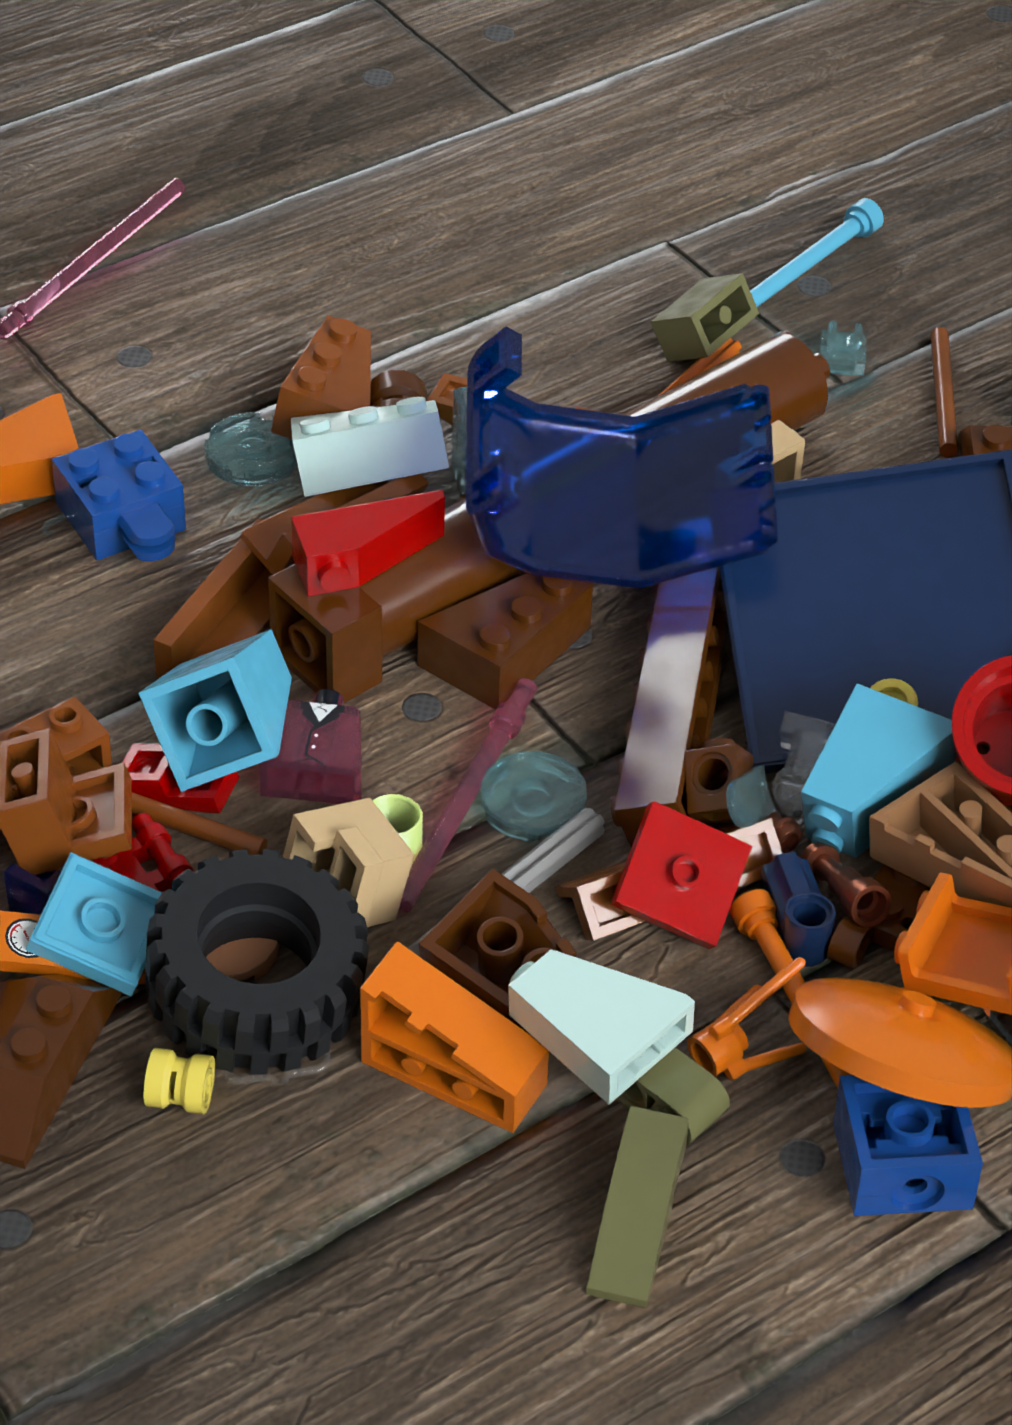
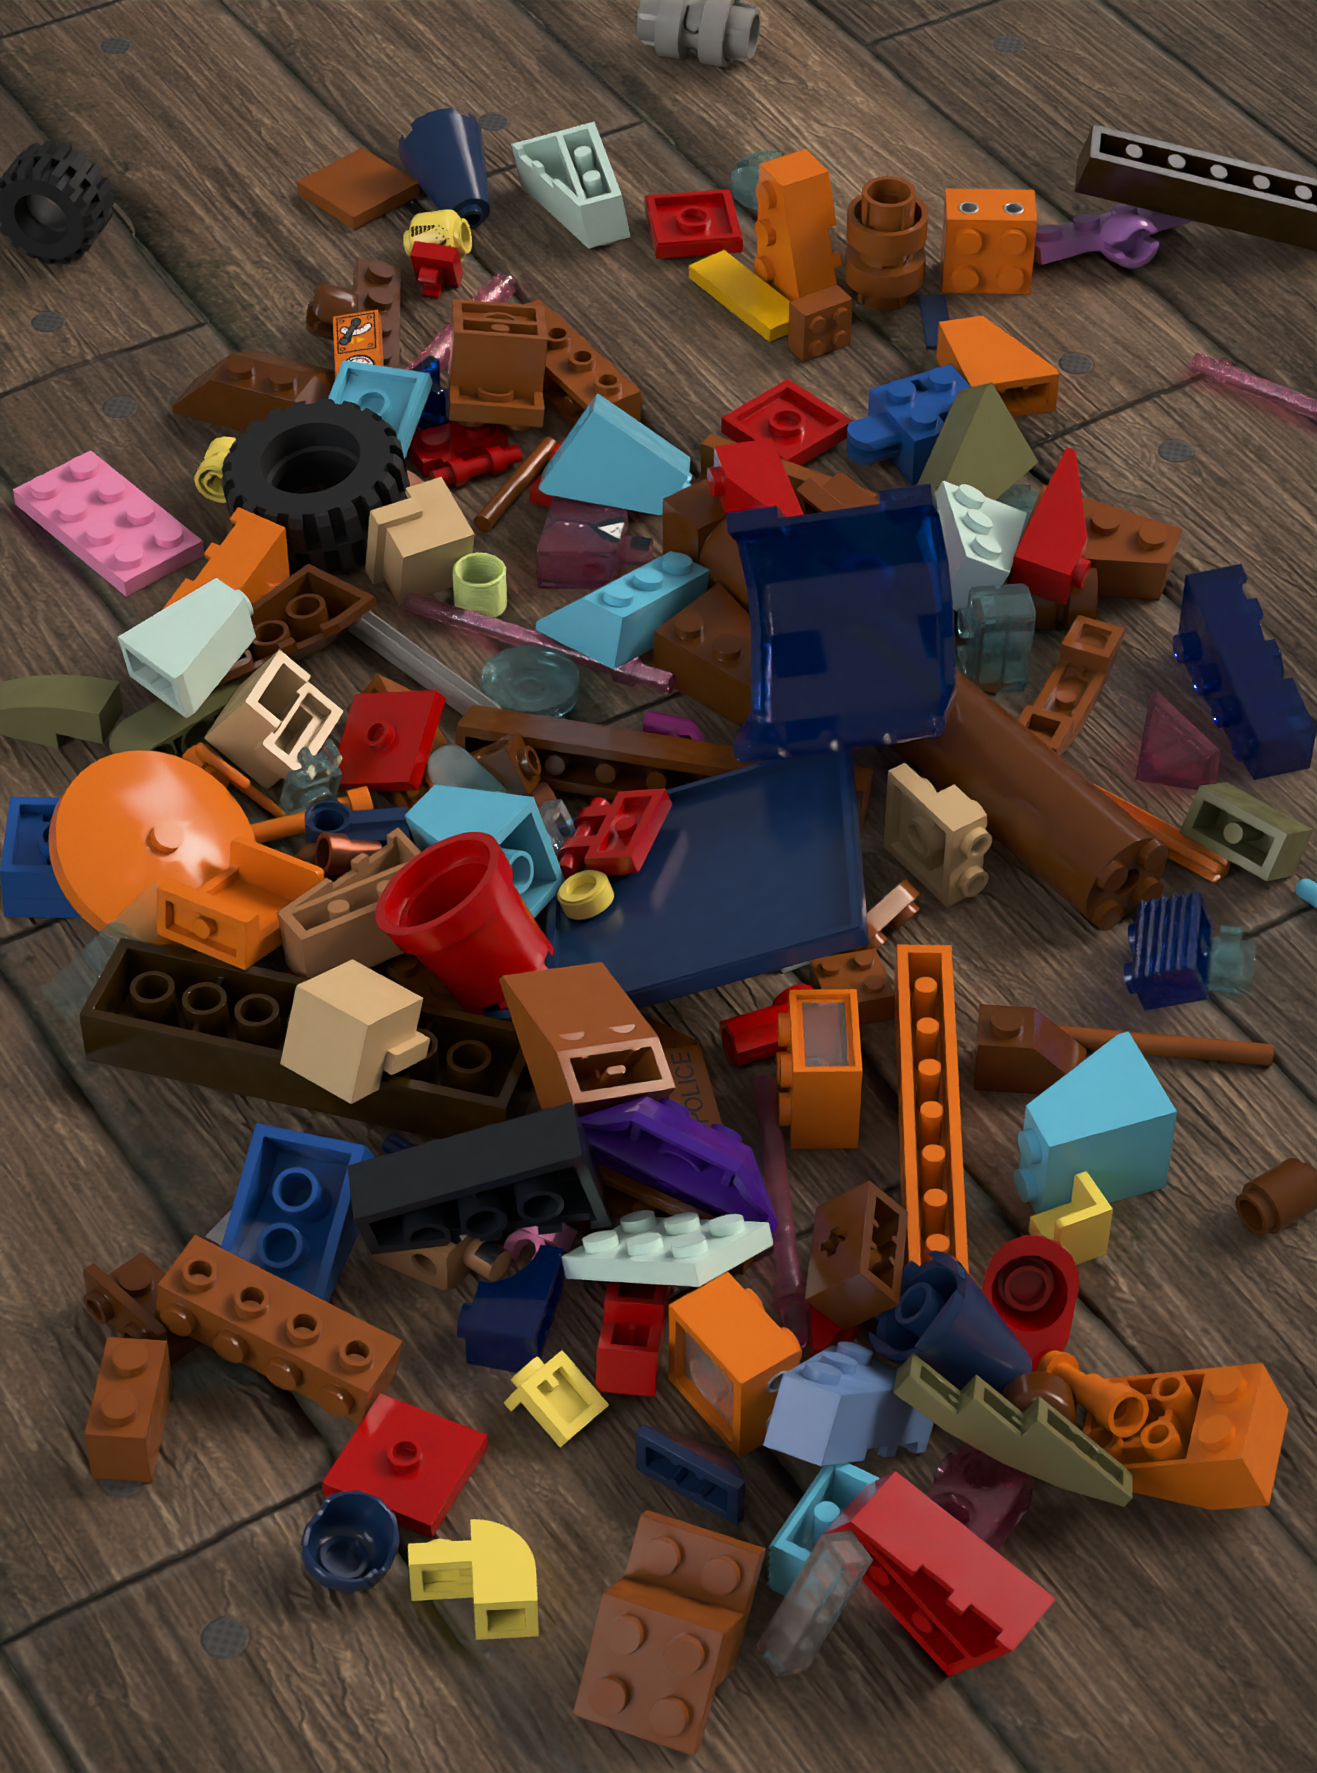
camera: 95 degrees right, 0 degrees up
(105, 605) = (793, 419): none -> red plate
(210, 450) = (979, 445): none -> olive slope
(261, 1204) = (108, 523): none -> bright pink plate
(363, 365) = (1055, 541): none -> red slope
(441, 701) = (622, 615): none -> medium azure slope
(467, 306) = (1242, 674): none -> clear blue wedge
(585, 362) = (1174, 749): none -> clear pink slope
(602, 678) = (671, 726): none -> magenta arm
(678, 959) = (272, 720): none -> tan plate
(742, 940) = (314, 781): none -> clear light blue plate
(812, 668) = (615, 835): none -> red plate
(863, 365) = (1170, 951): none -> clear blue brick

